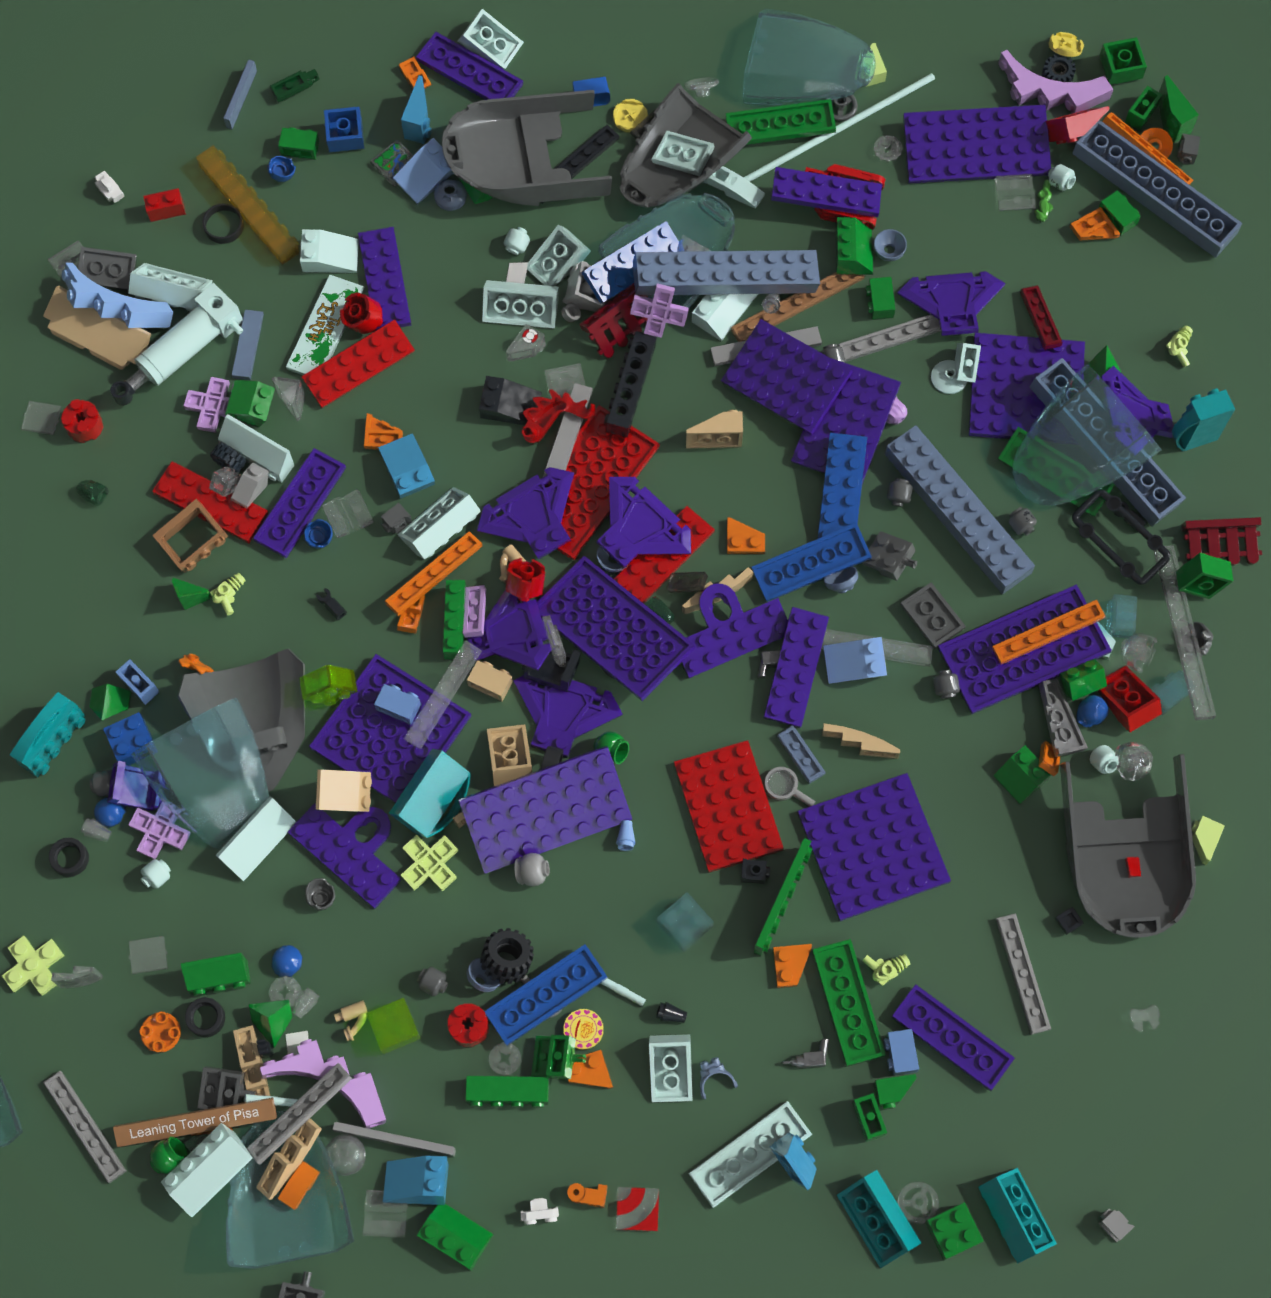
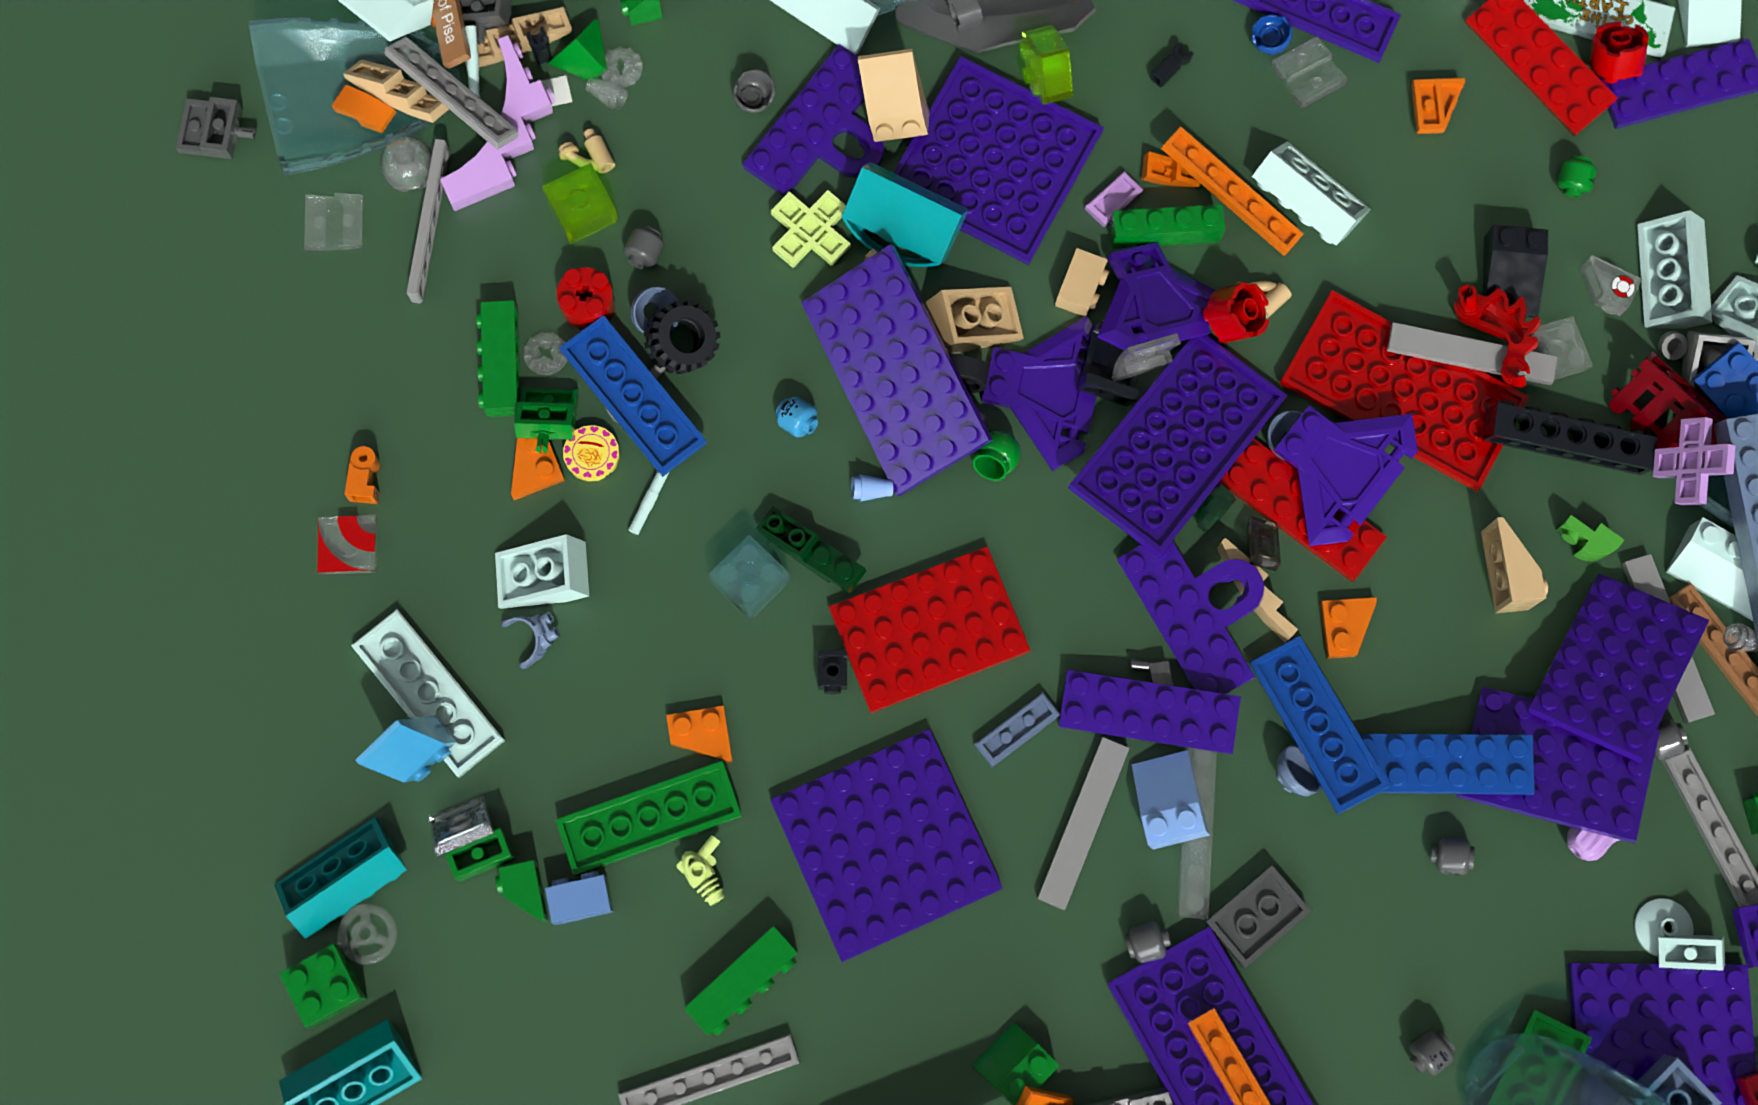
camera: 80 degrees right, 5 degrees up
(286, 961) = (662, 63): blue hair -> none
(395, 519) = (1308, 133): dark grey window -> none
(397, 703) = (1030, 159): medium blue brick -> none
(406, 466) = (1390, 138): dark azure slope -> none
(416, 1180) = (373, 254): dark azure slope -> none
(428, 653) = (1114, 197): none -> lavender tile
(442, 694) = (1050, 216): clear plate -> none
(446, 353) = (1576, 176): none -> green head
(455, 1235) = (303, 309): green slope -> none
(474, 611) = (1181, 250): lavender plate -> none
(517, 272) = (1725, 265): white sticker -> none
(531, 869) = (808, 360): light grey piece -> none
(532, 512) = (1343, 315): dark purple plate -> none
(539, 1211) = (338, 415): white piece -> none
(570, 881) = (797, 416): none -> dark azure head
(668, 879) = (810, 550): none -> dark green slope
(670, 1013) = (618, 568): black cone -> none
(700, 381) = (1592, 543): none -> bright green brick
(782, 784) = (968, 706): piece -> none
(787, 891) = (784, 708): green plate -> none
(811, 1059) = (564, 770): flat silver piece -> none
(849, 1129) = (460, 825): none -> clear tile
(866, 718) = (1083, 823): none -> light grey tile
(868, 744) = (1040, 825): tan slope -> none
(890, 555) = (1347, 846): dark grey plate -> none
(953, 1037) = (605, 975): dark purple plate -> none
(959, 510) = (1437, 950): sand blue brick -> none
(961, 946) = (741, 981): none -> green brick

